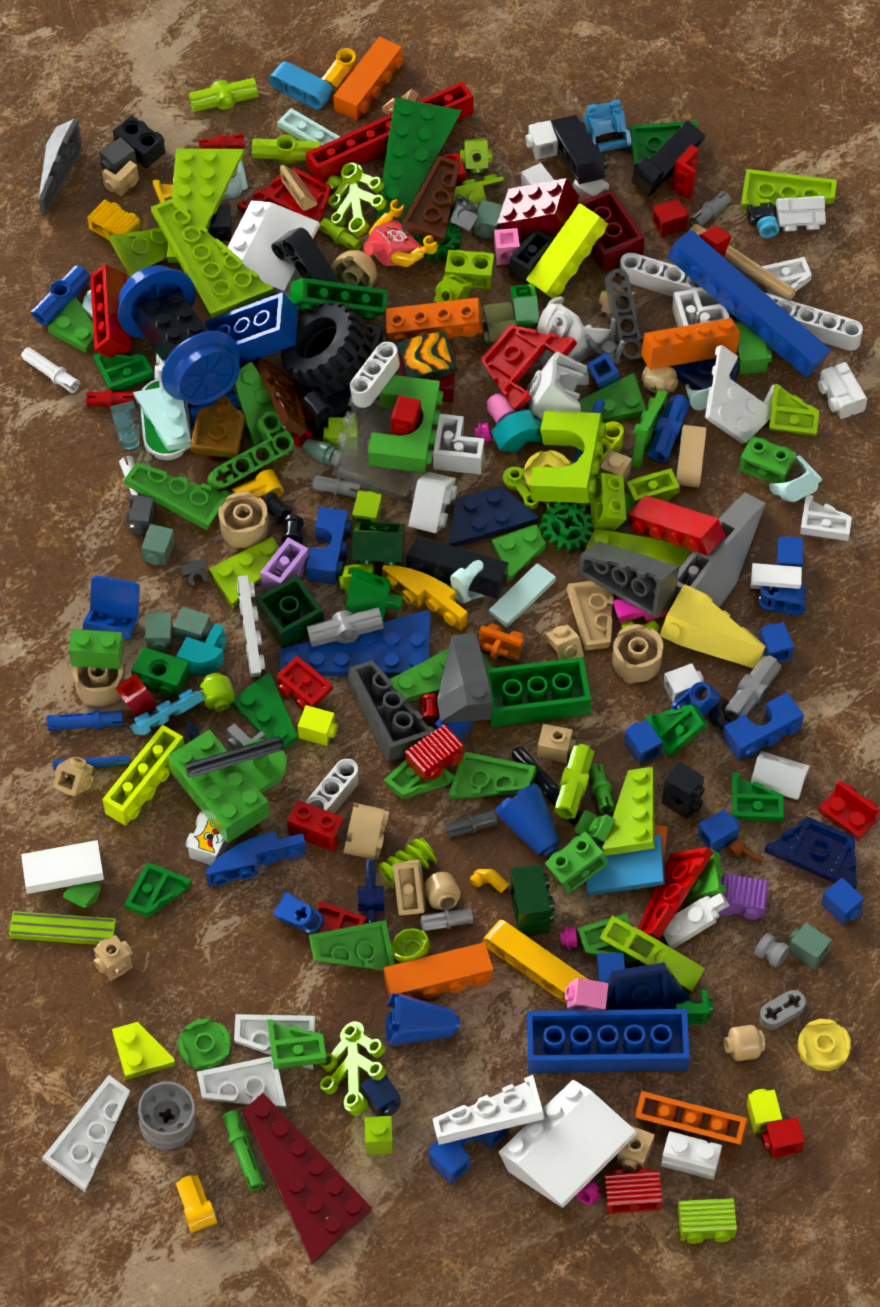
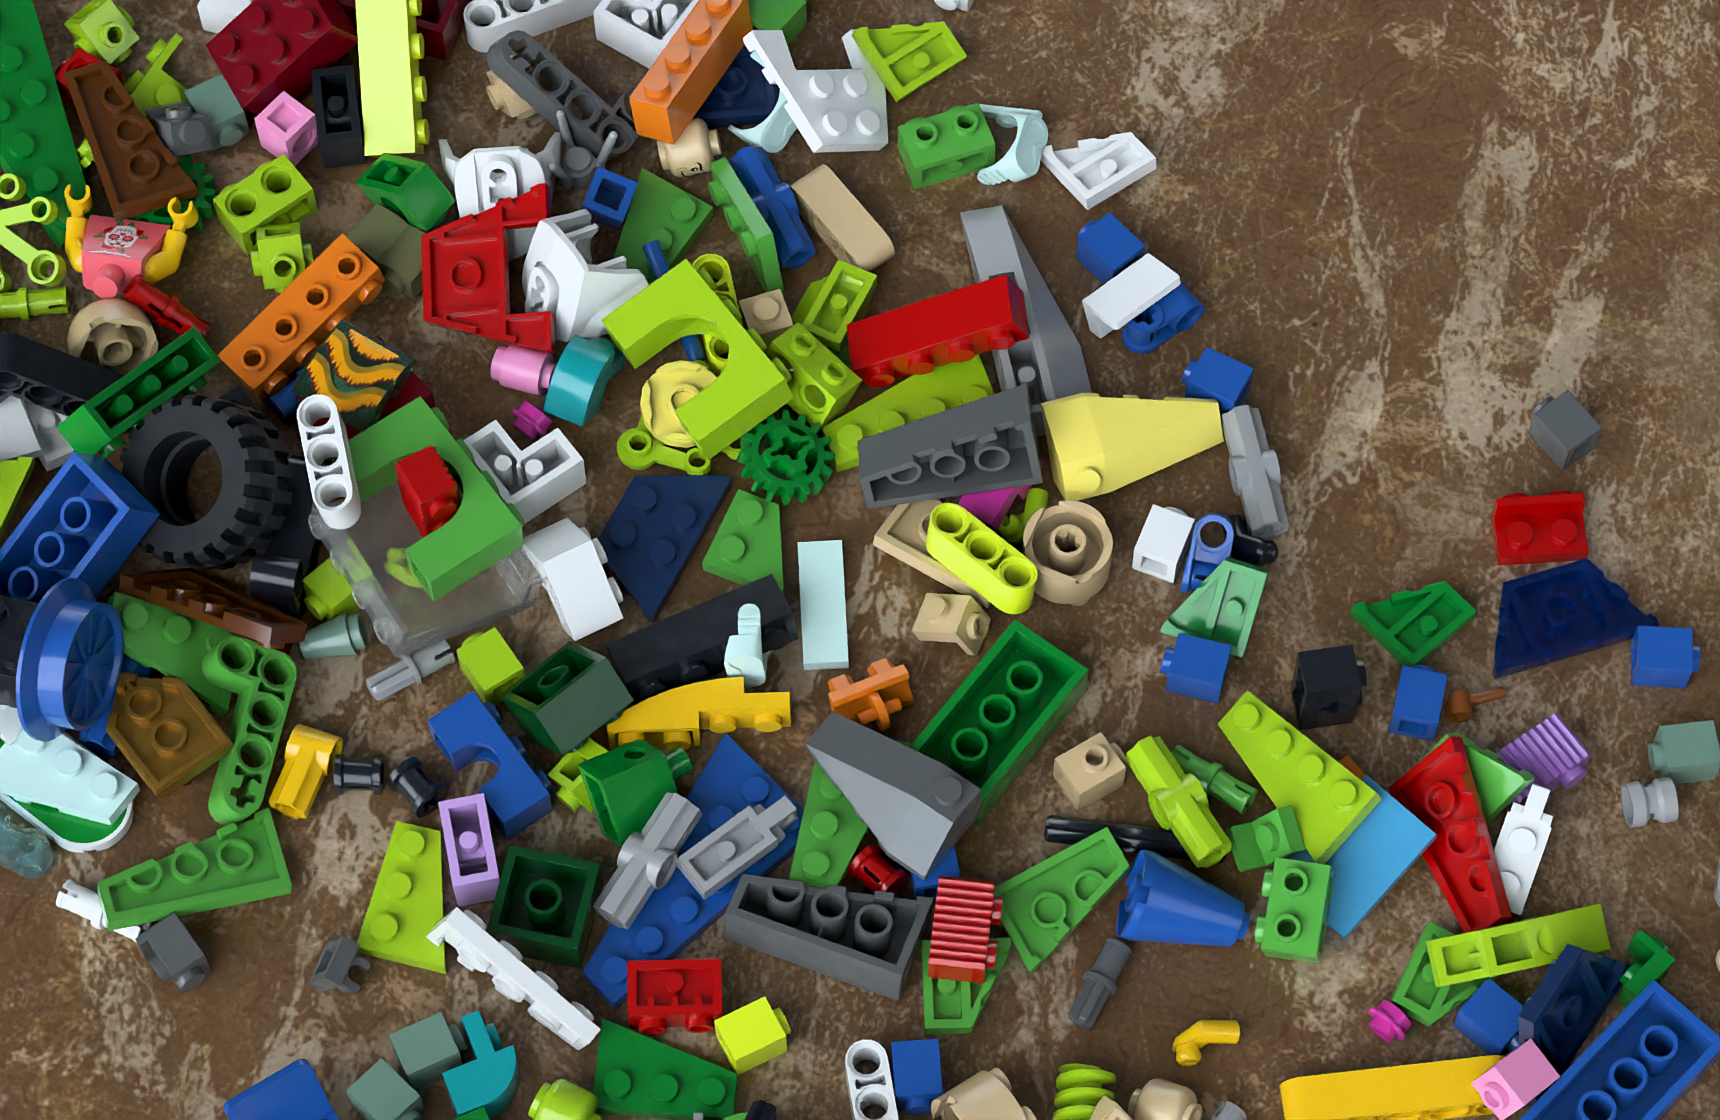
camera: 45 degrees left, 5 degrees up
(158, 545) = (248, 976): sand green brick -> none
(243, 520) = (357, 829): tan brick -> none
(362, 791) = (916, 1075): none -> blue brick
(384, 650) = (736, 846): none -> light grey hinge
(387, 277) = (163, 307): none -> red pin
(531, 900) = (1300, 1016): dark green brick -> none
(592, 617) = (990, 576): none -> neon yellow beam
(747, 738) = (1314, 544): blue arch -> none
(780, 774) = (1407, 556): white panel -> none

